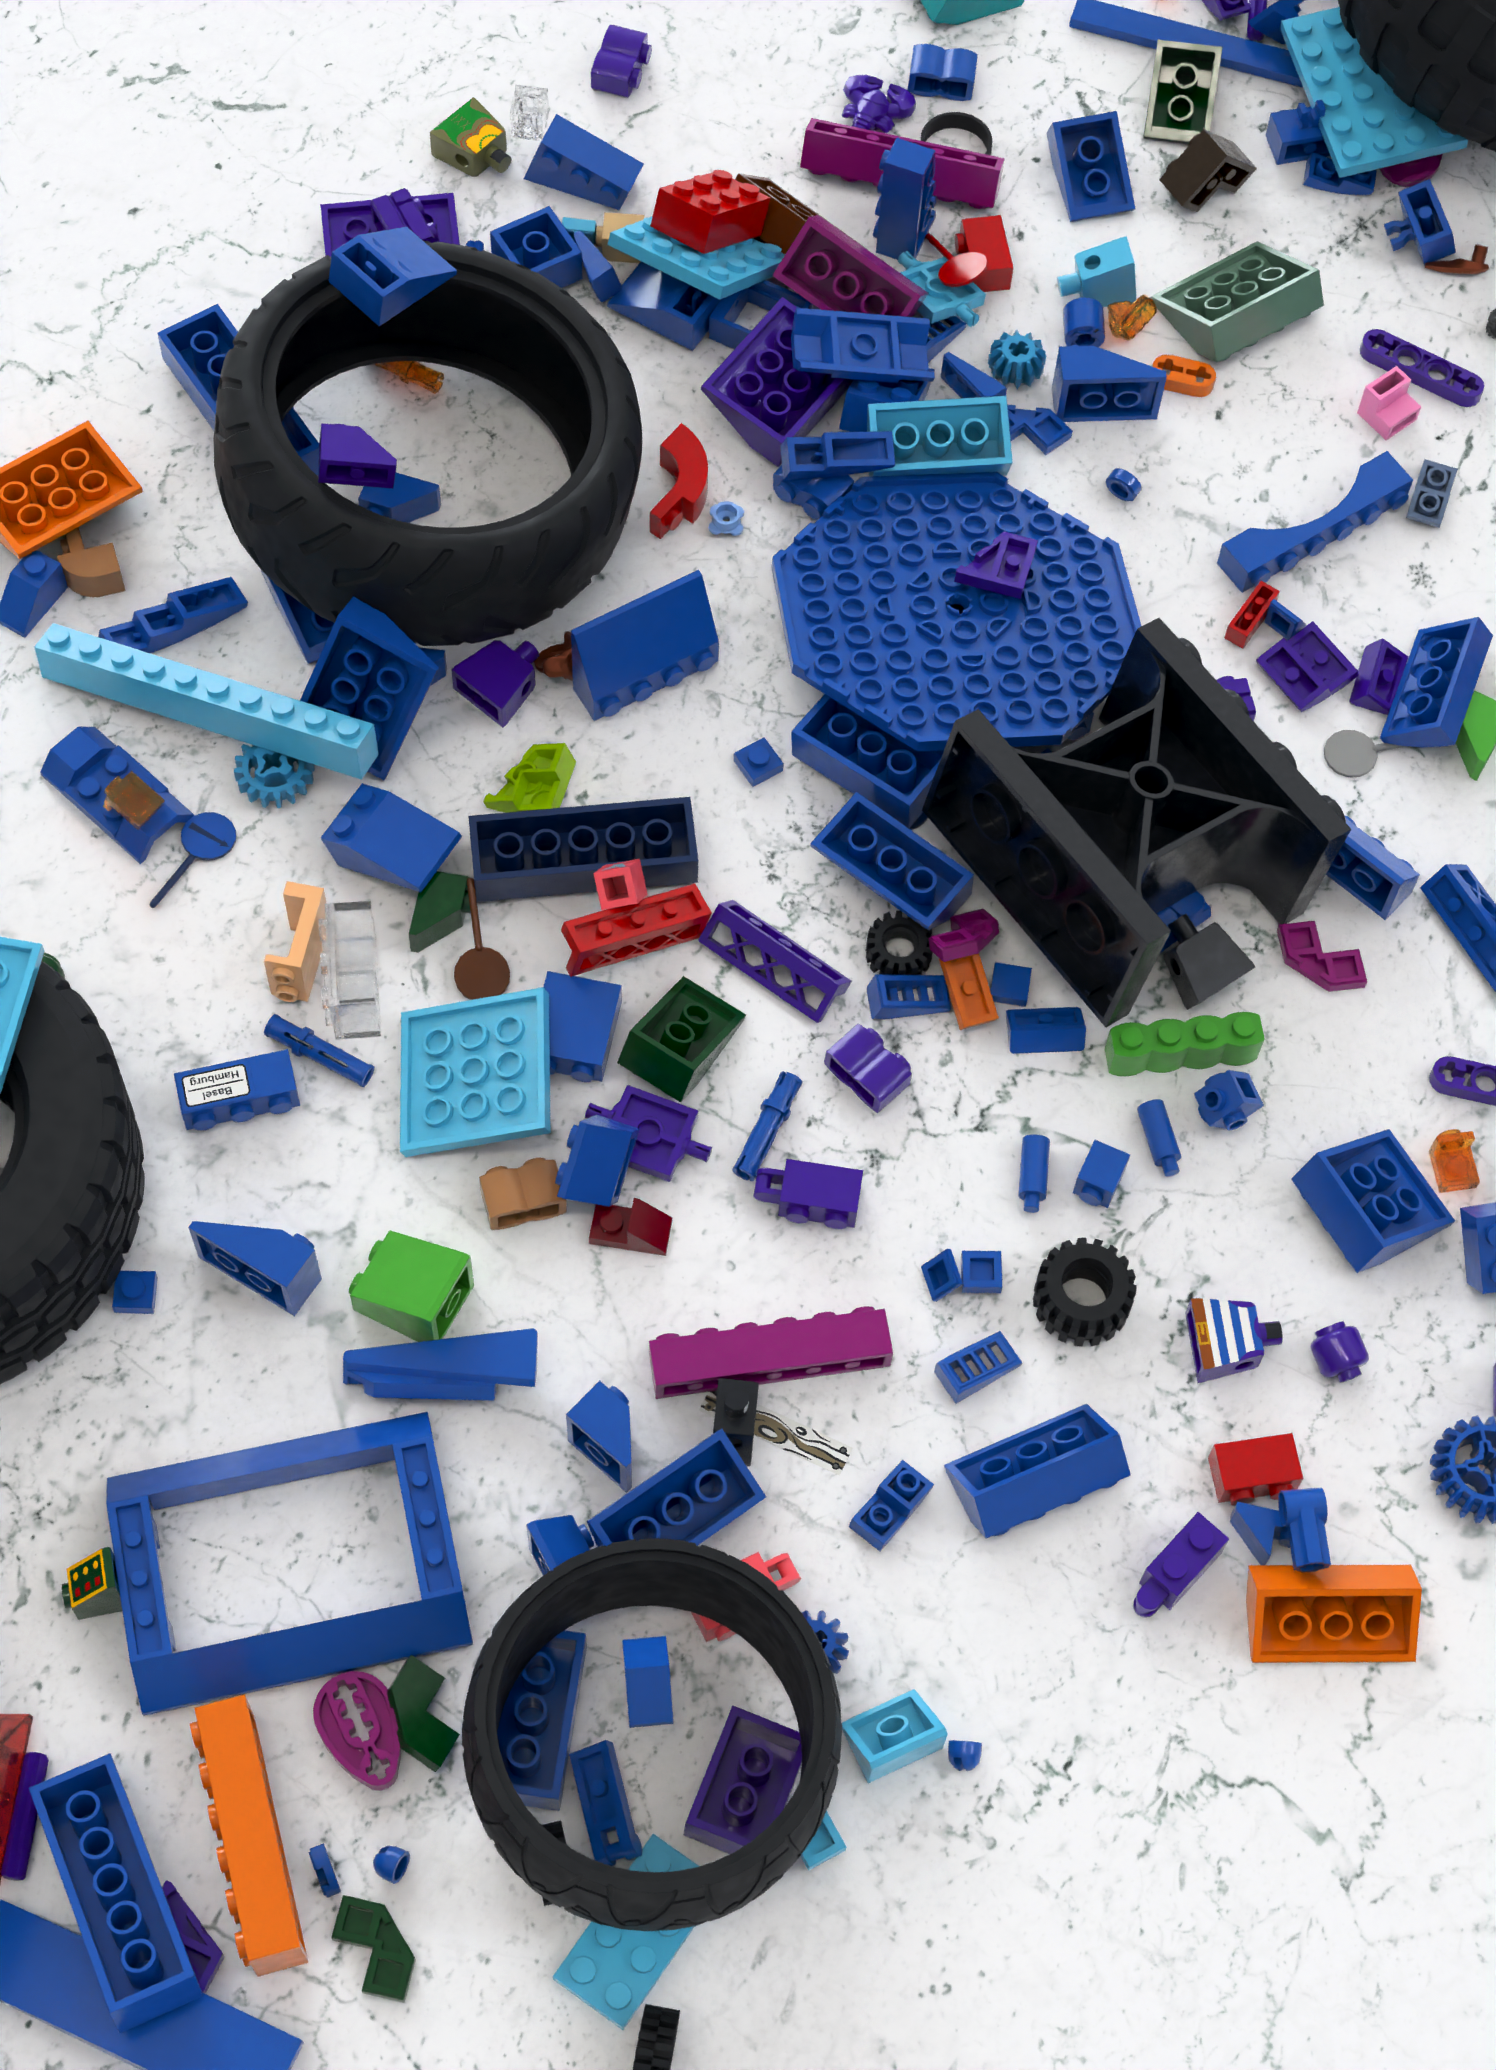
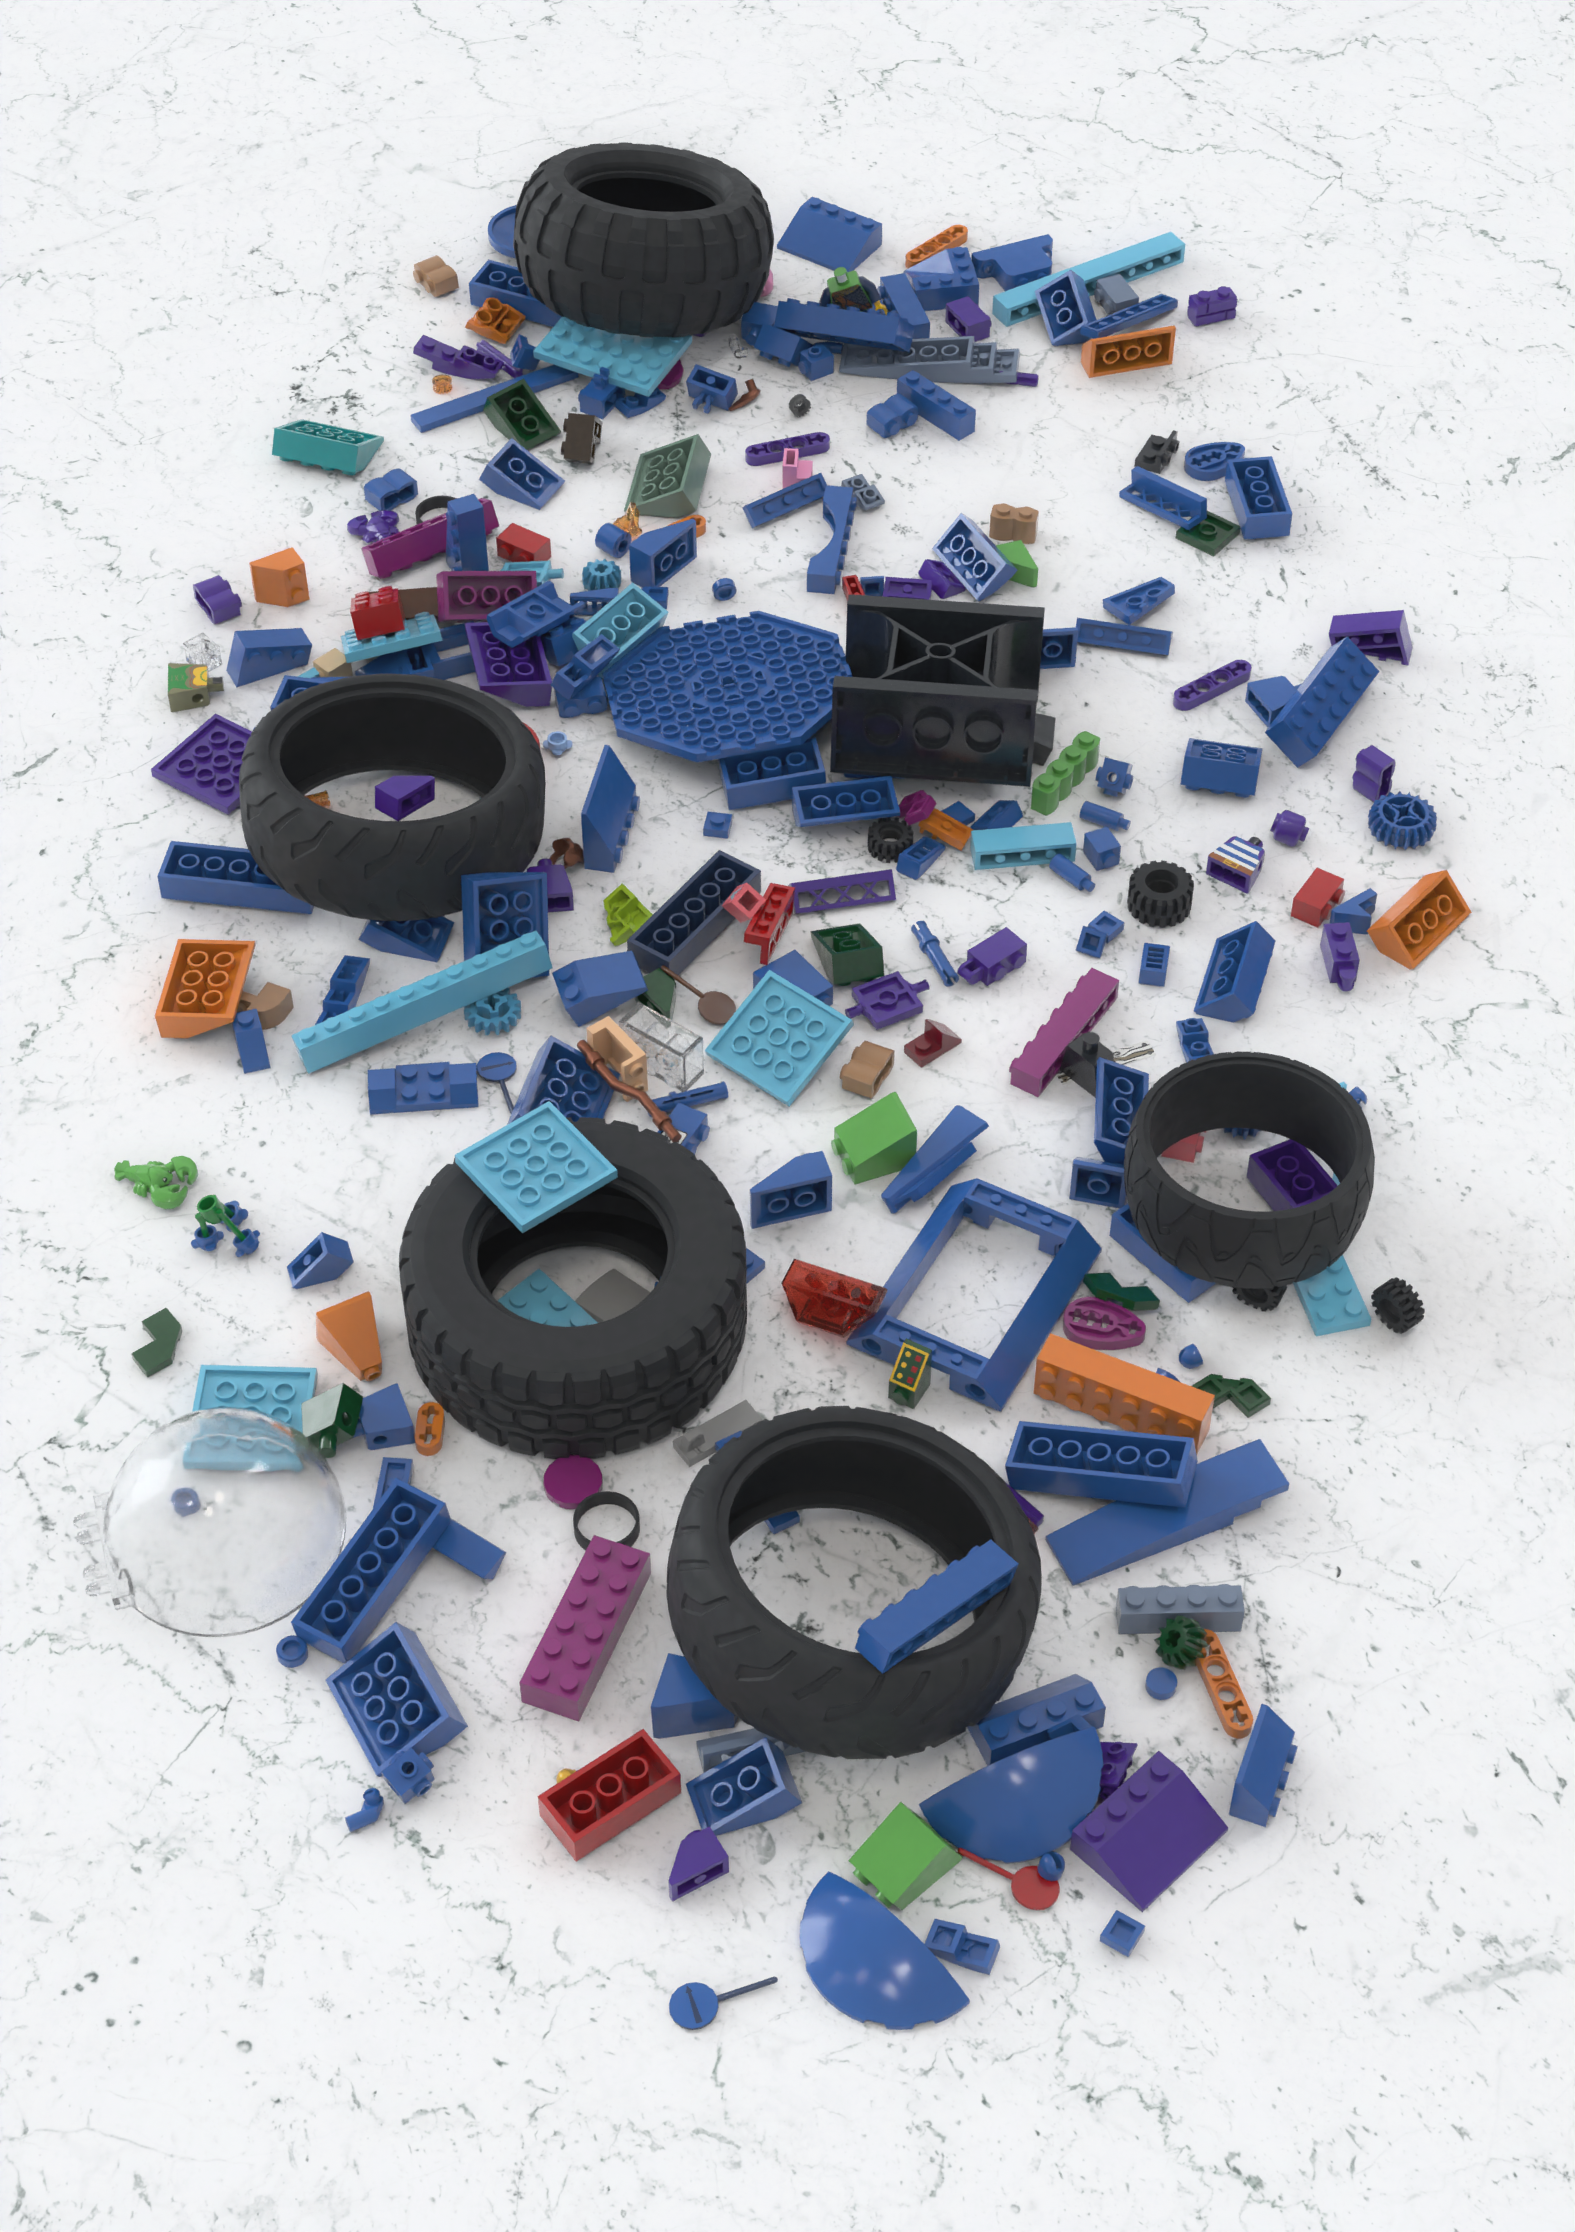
camera: 45 degrees left, 15 degrees down
(132, 799) = (447, 1068): clear orange bracket -> none
(138, 1417) = (830, 1298): none -> clear red wedge
(206, 935) = (566, 1081): none -> blue slope
(239, 1052) = (660, 1118): none -> copper bar
(387, 271) = (302, 716): blue slope -> none
(402, 211) = (218, 741): dark purple brick -> none
(596, 1161) = (887, 1019): blue slope -> none
(601, 1432) = (1049, 1115): blue slope -> none
(648, 1681) = (1232, 1129): blue slope -> none
(696, 88) = (280, 579): none -> orange slope
(868, 1067) = (946, 894): dark purple brick -> none
(959, 269) = (525, 557): red piece -> none
(1001, 566) = (728, 650): dark purple wing -> none
(1023, 1087) = (1021, 845): none -> medium azure brick
(1102, 274) = (595, 510): medium azure torso -> none
(1305, 1518) = (1367, 885): blue piece -> none
(1329, 431) = (785, 500): none -> blue plate
(1329, 970) = (1060, 704): magenta tile -> none
(1454, 1161) = (1230, 727): clear orange bracket -> none

